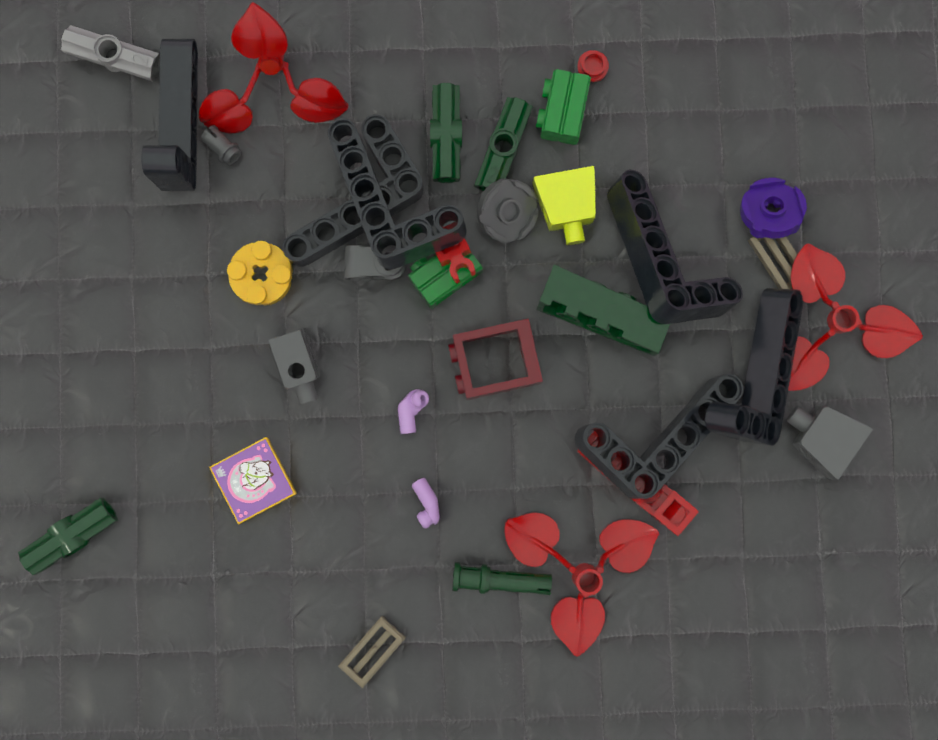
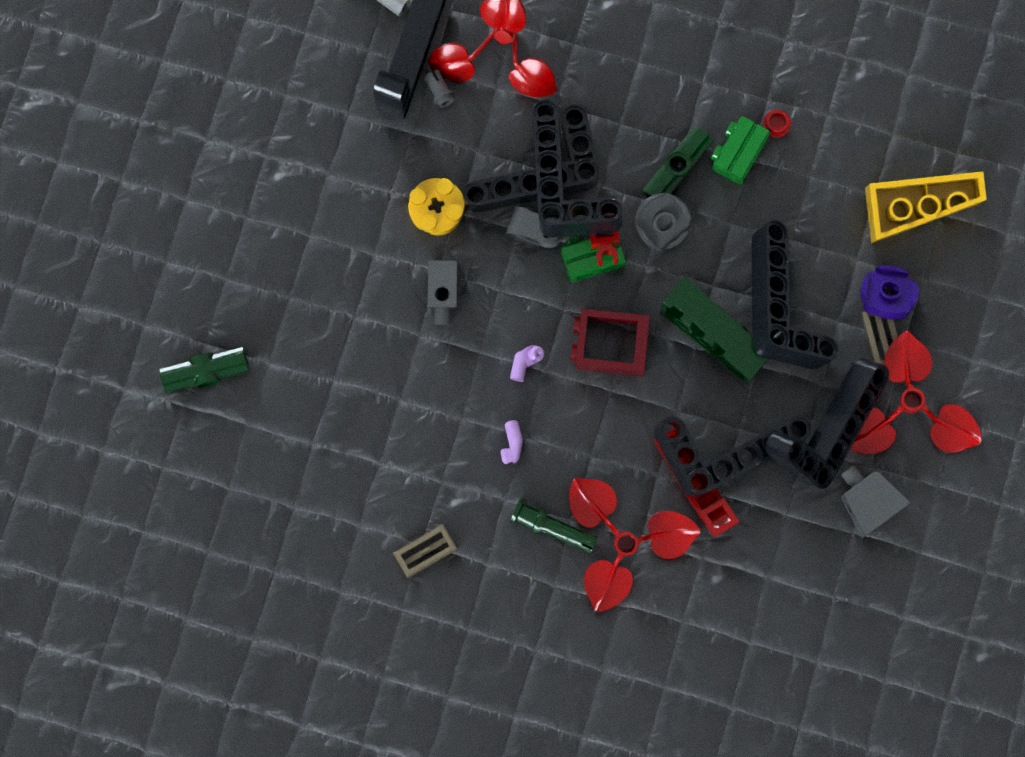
camera: 20 degrees right, 5 degrees down
(253, 480) = (372, 376): tile -> none
(446, 133) = (632, 140): dark green piece -> none
(567, 201) = (716, 230): neon yellow torso -> none
(764, 105) = (914, 202): none -> yellow wedge

